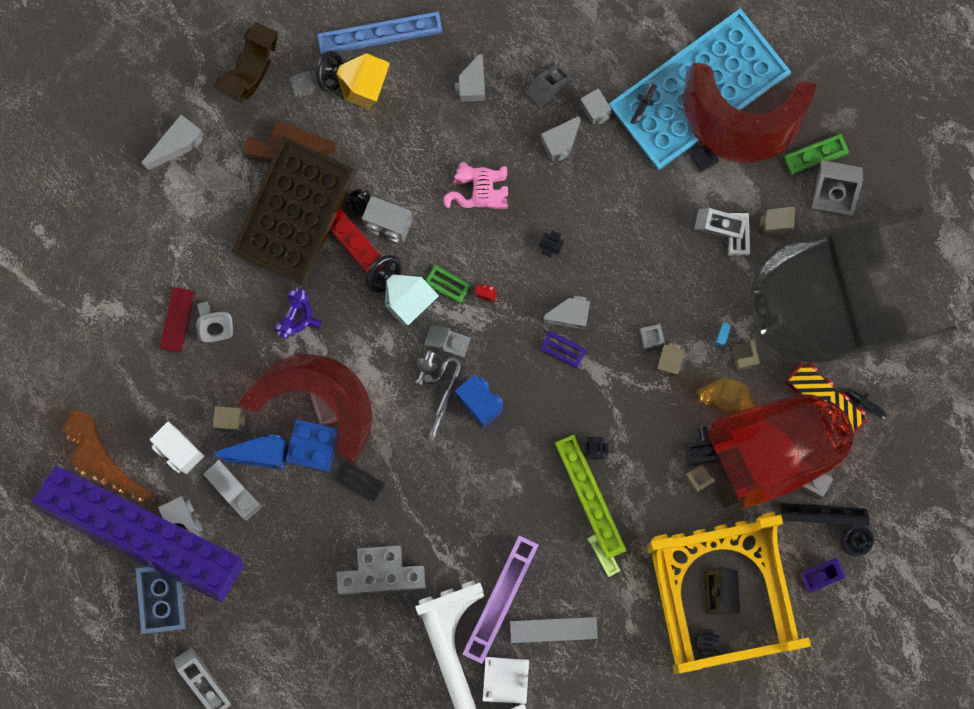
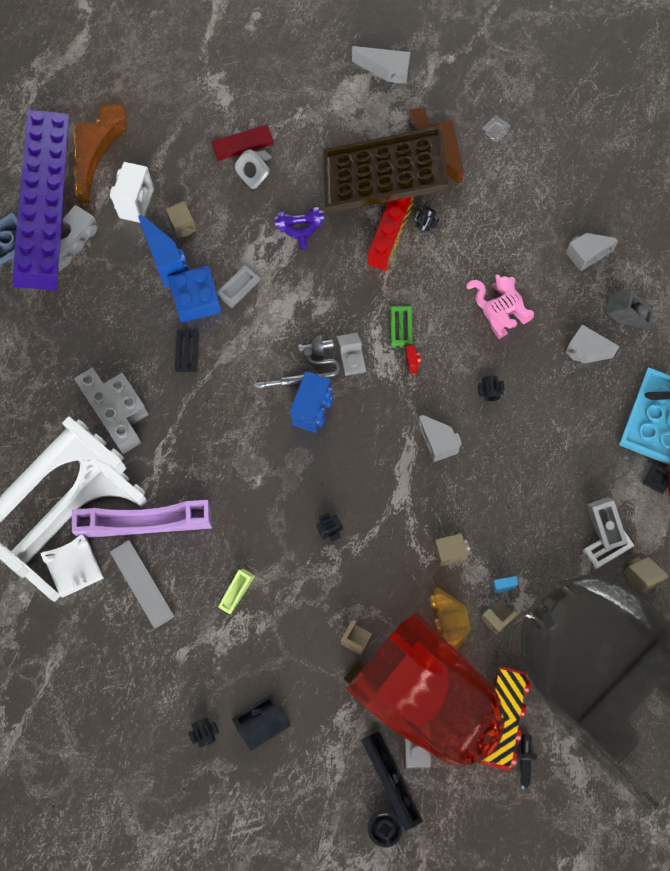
camera: 60 degrees right, 10 degrees down
(232, 490) = (121, 258): light grey slope -> none
(250, 65) = (484, 82): dark brown brick -> none
(329, 381) = (254, 287): clear red windscreen -> none
(359, 78) = (531, 159): yellow piece -> none
(380, 33) = (580, 161): medium blue tile -> none
(387, 220) = (423, 244): light grey brick -> none
(404, 295) = (367, 290): light aqua piece -> none
(552, 353) = (404, 470): dark purple tile -> none
(590, 497) = (280, 548): lime tile -> none
(595, 107) = (638, 358): light grey brick -> none
(652, 336) = (463, 522): light grey tile -> none
(701, 451) = (382, 624): black plate -> none
(765, 536) = (262, 643): yellow arch -> none
(822, 575) = (329, 811): dark purple slope -> none

